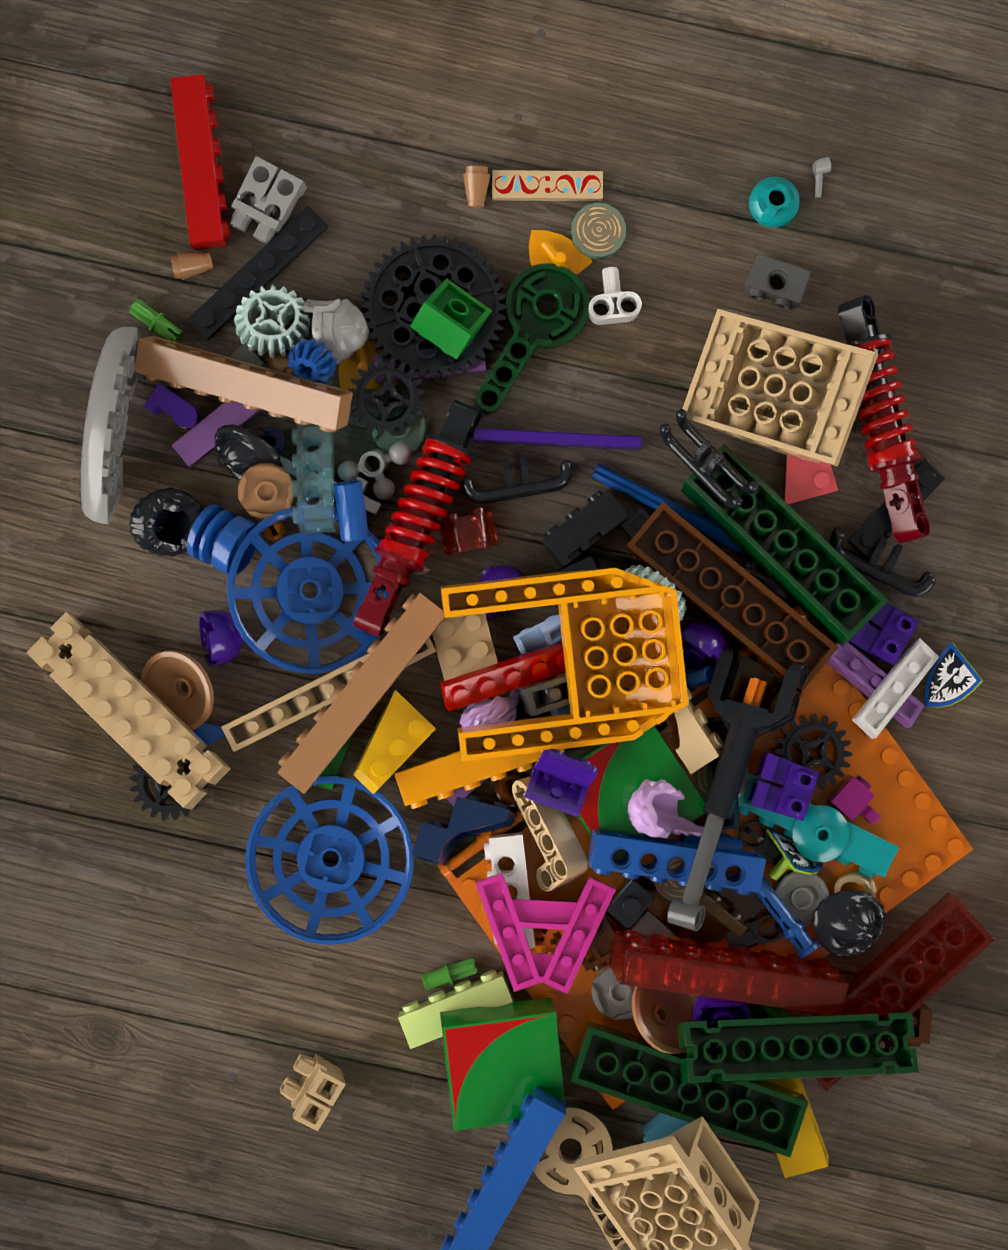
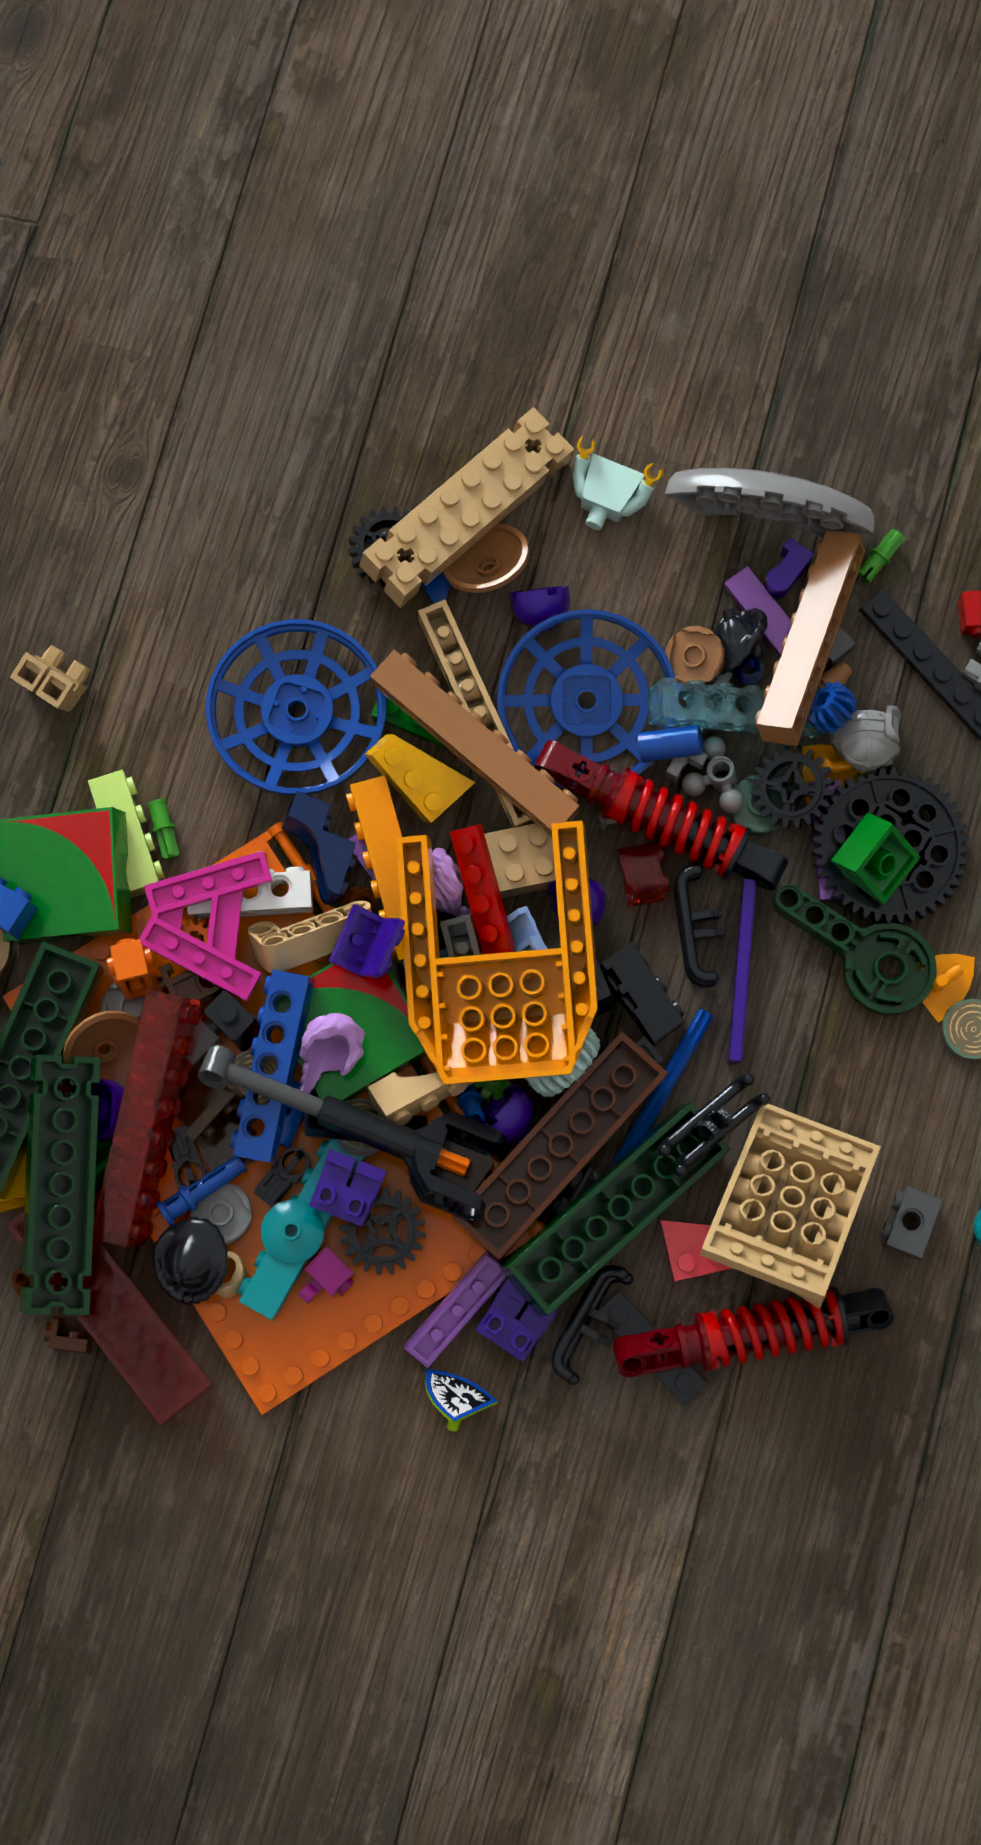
camera: 95 degrees right, 10 degrees down
(100, 577) = (609, 488): none -> light aqua torso
(164, 521) = (665, 558): black piece -> none
(190, 264) = (941, 594): medium nougat cone -> none
(217, 537) = (647, 602): blue wheel -> none
(273, 308) = (865, 660): light aqua gear -> none
(279, 527) = (655, 673): orange hinge -> none
(590, 995) = (132, 968): none -> orange brick
(612, 300) = (893, 1041): white beam -> none
(791, 857) = (266, 1197): shield -> none
(895, 688) = (449, 1332): white tile -> none

